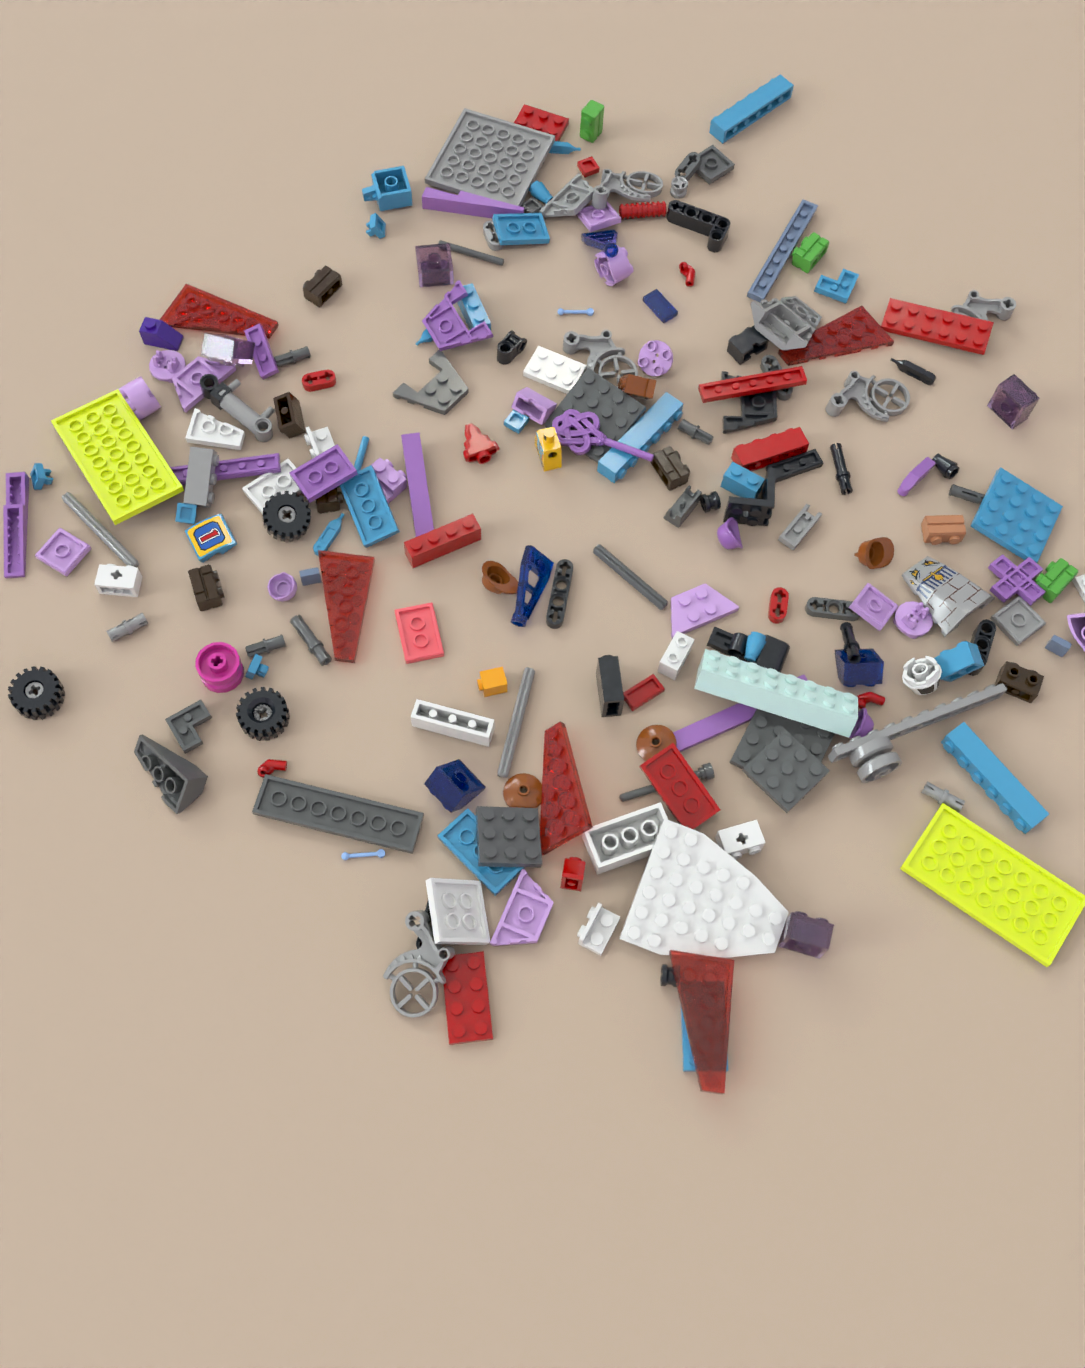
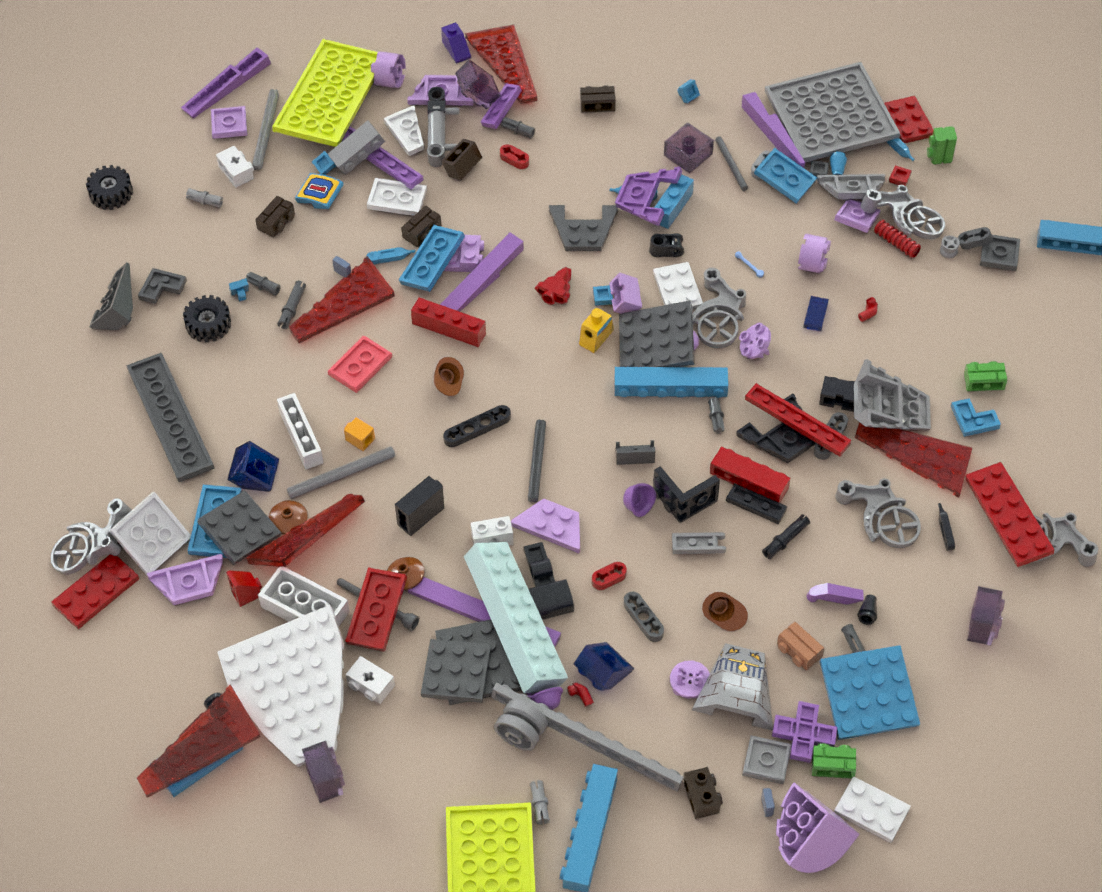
camera: 55 degrees right, 10 degrees down
(38, 476) = (274, 66): dark azure tile -> none
(166, 359) = (435, 64): lavender plate -> none
(219, 667) = (218, 267): dark pink wheel -> none
(270, 766) = (172, 352): red arm -> none
(282, 587) = (317, 257): lavender hair -> none
(286, 527) = (384, 223): black bush -> none
(319, 440) = (458, 197): white bracket -> none
(323, 473) = (427, 210): medium lavender plate -> none
(361, 453) = (479, 224): dark azure bar -> none
(380, 853) = (163, 464): light blue hinge -> none
(389, 189) = (730, 73): dark azure hinge -> none
(542, 567) = (485, 393): clear blue plate -> none
(580, 436) = (635, 338): medium lavender piece -> none
(598, 929) = (215, 634): white bracket -> none
(602, 240) = (828, 229): clear blue plate -> none
(637, 386) = (709, 344): dark orange hips -> none
(643, 692) = (442, 536): red tile -> none
(670, 468) = (662, 419): dark brown brick -> none
(700, 221) = (934, 295): black beam -> none
(710, 501) = (655, 462): black wheel -> none
(742, 481) = (696, 469): dark azure brick -> none
(754, 646) = (545, 576): dark azure cone -> none
(782, 251) = (960, 357): sand blue plate -> none
(851, 646) = (608, 642): black pin -> none
(873, 606) = (670, 640): lavender plate -> none
(922, 675) = (634, 714): white cone -> none
(959, 661) = (671, 730): dark azure brick -> none
(983, 640) = (713, 735): black beam -> none

